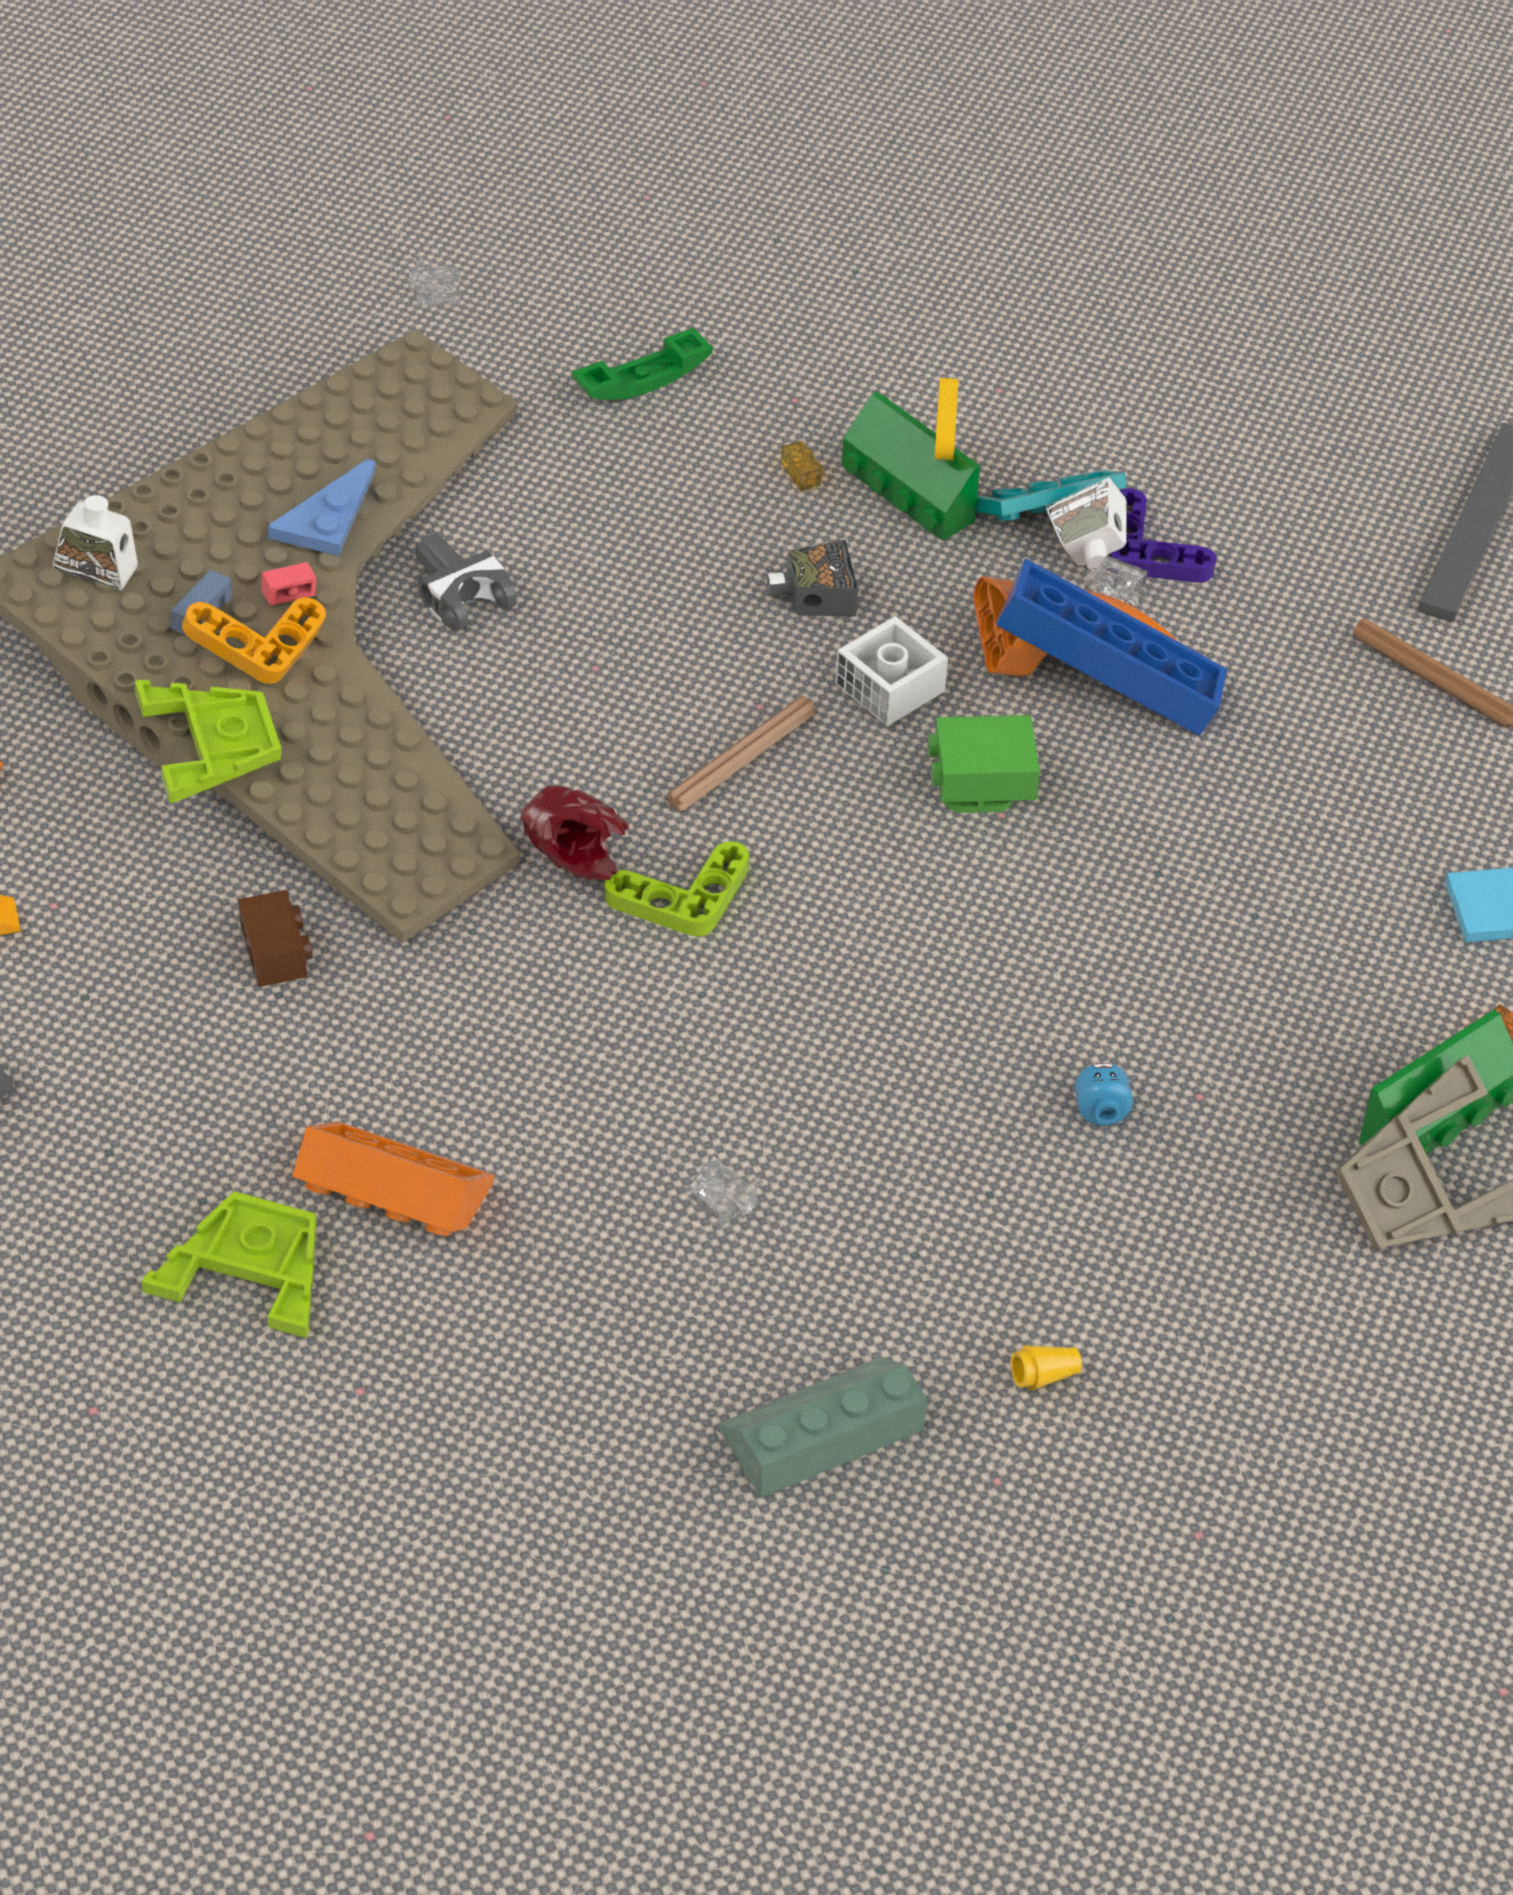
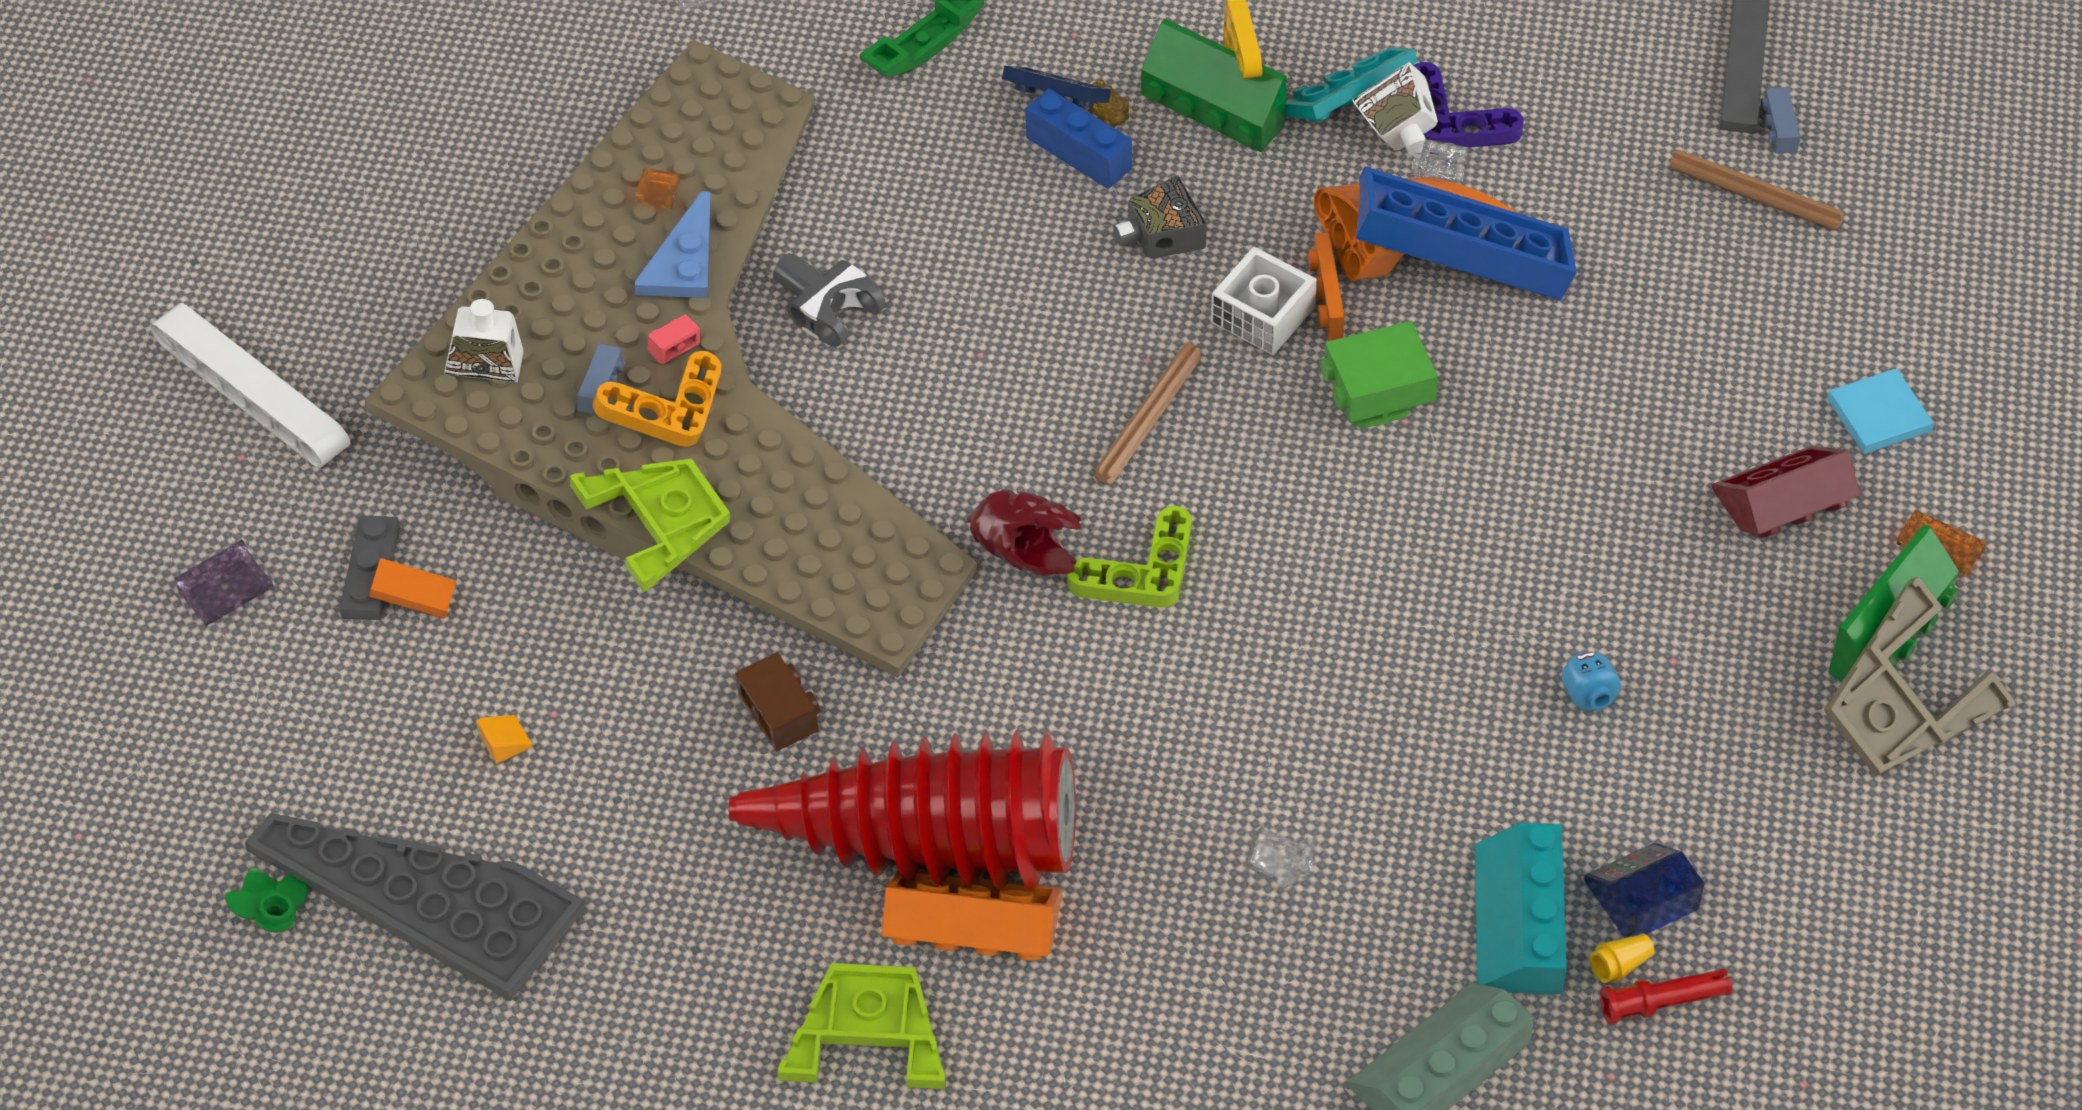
camera: 10 degrees left, 5 degrees up
(326, 448) = (657, 188): none -> clear orange tile
(386, 1067) = (933, 810): none -> red cone
(754, 438) = (1030, 79): none -> dark blue plate
(761, 489) = (1078, 138): none -> blue brick
(956, 1297) = (1521, 909): none -> teal slope
(961, 670) = (1330, 311): none -> orange plate
(1056, 1411) = (1646, 998): none -> red pin
(1095, 1307) = (1647, 889): none -> clear blue slope
(1373, 958) = (1788, 489): none -> slope
(1481, 613) = (1781, 120): none -> sand blue piece

